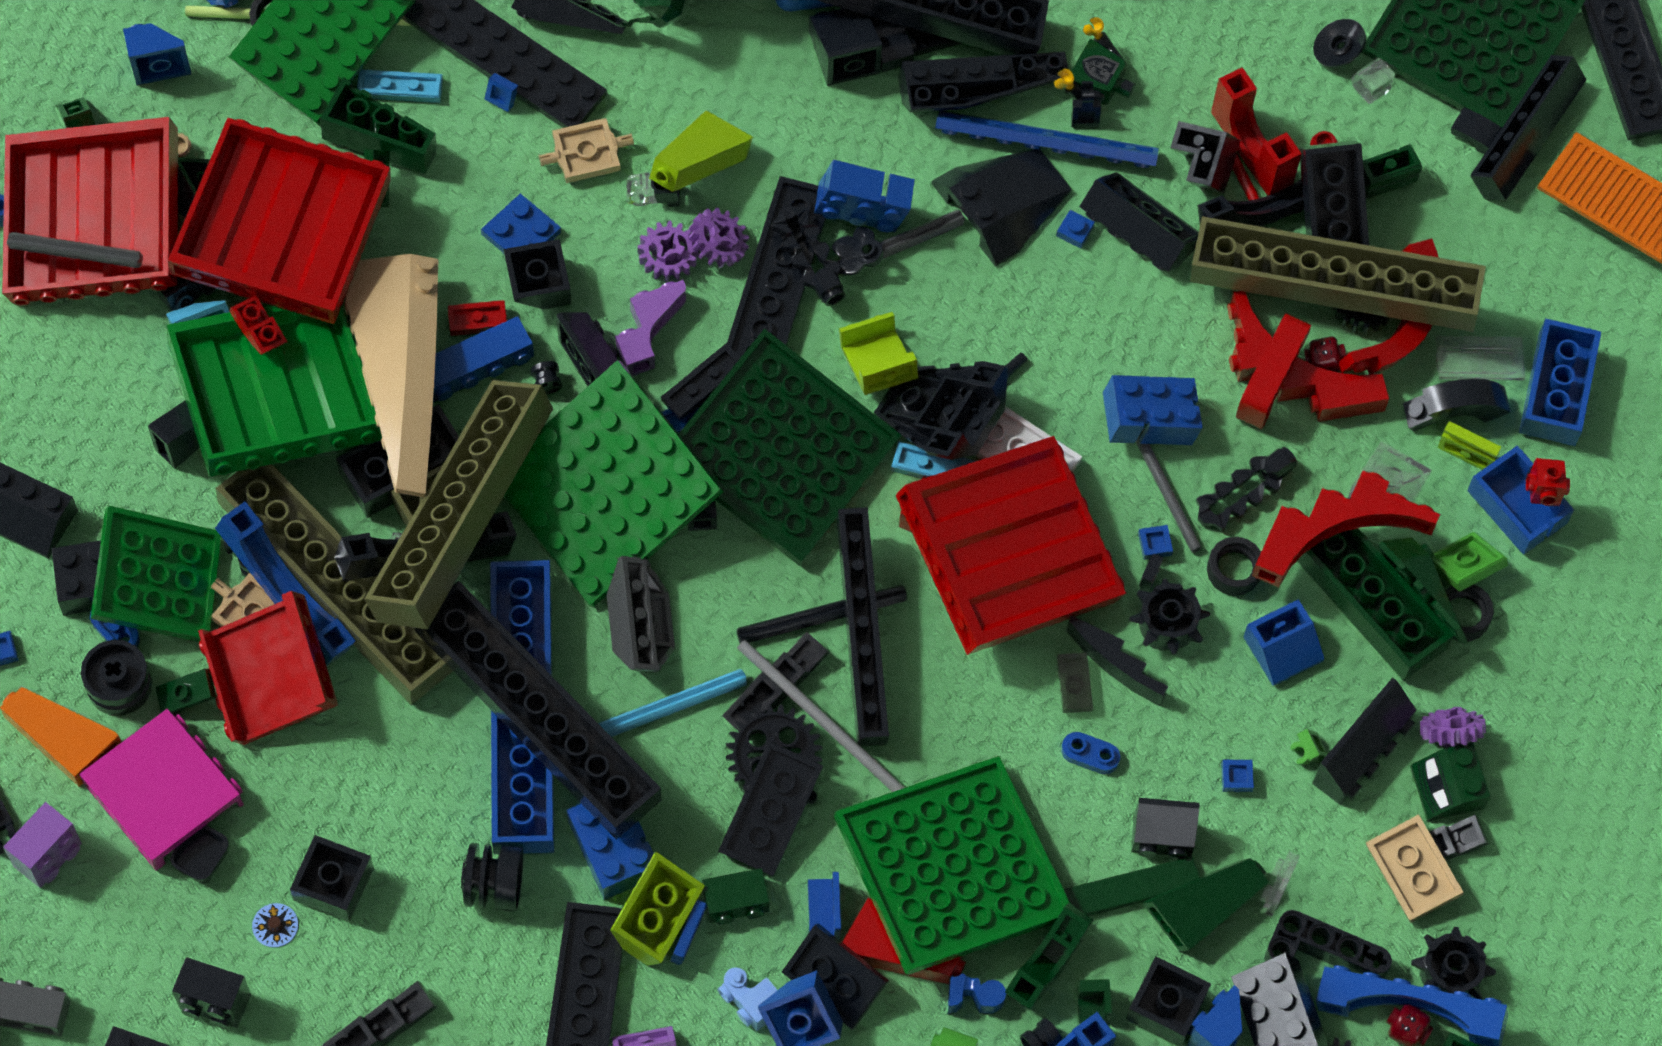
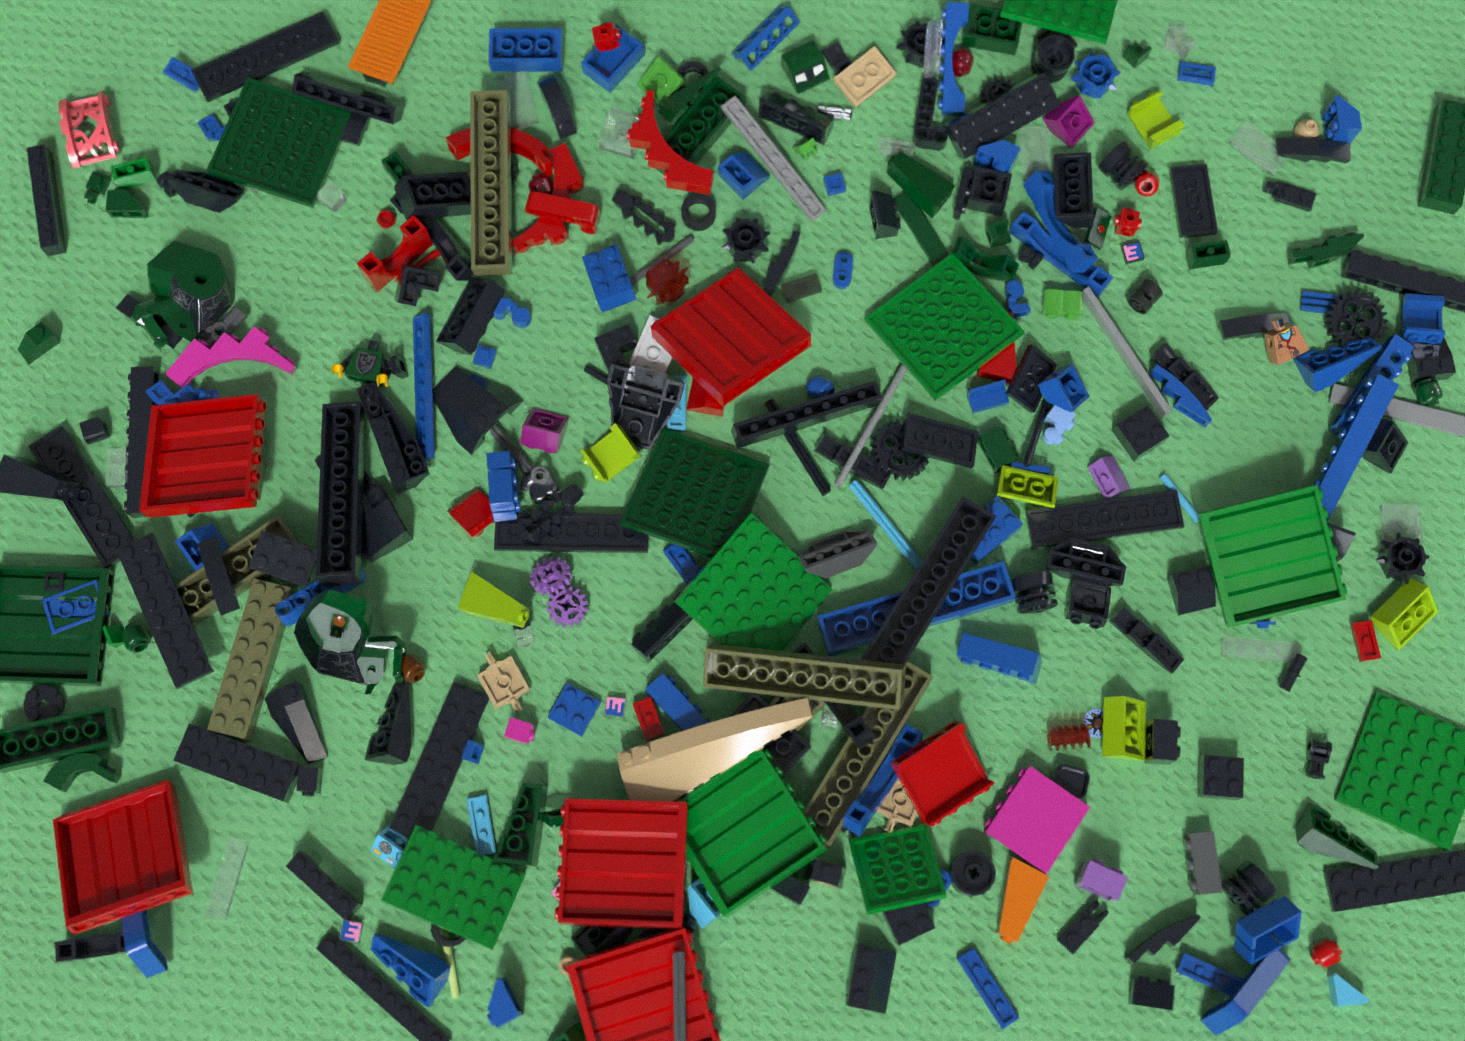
camera: 100 degrees left, 10 degrees up
(186, 691) = (968, 825): dark green plate -> none
(187, 484) = (825, 873): none -> black torso
(256, 949) = (1124, 728): none -> lime slope
(257, 326) = (707, 853): red slope -> none
(263, 867) = (1067, 736): none -> clear red piece
(332, 878) = (1063, 692): black brick -> none
(410, 804) = (999, 657): none -> blue wedge
(455, 958) = (1088, 604): none -> black plate
(501, 283) = (615, 707): none -> tile
(510, 152) = (520, 731): none -> dark pink brick
(519, 966) = (1086, 562): none -> black wedge
(538, 275) = (610, 683): black slope -> none
(547, 375) = (681, 660): black wheel -> none
(641, 41) = (412, 668): none -> reddish brown head
(651, 313) = (617, 606): medium lavender arch -> none
(700, 382) = (661, 556): black plate -> none
(737, 952) = (1036, 434): none -> black bar
(839, 146) = (472, 513): none -> red slope
(902, 665) = (819, 387): none -> blue head
(939, 278) = (544, 430): none -> magenta slope
(1043, 392) = (614, 344): none -> black brick
(1126, 486) = (666, 281): none -> clear red brick
(1136, 278) = (520, 316): none -> blue leg
(1150, 948) = (964, 189): none -> black hinge
(1151, 573) = (717, 258): black tile -> none
(1155, 541) = (695, 261): blue plate -> none
(1296, 688) = (773, 159): none -> light grey tile
(1339, 43) = (300, 223): black dish -> none
(1363, 809) = (835, 112): none -> axle
(1430, 964) = (933, 48): none -> clear piece
(1452, 727) = (772, 78): medium lavender gear -> none
(1468, 446) = (583, 94): lime plate -> none
(1527, 734) = (761, 32): none -> blue fence

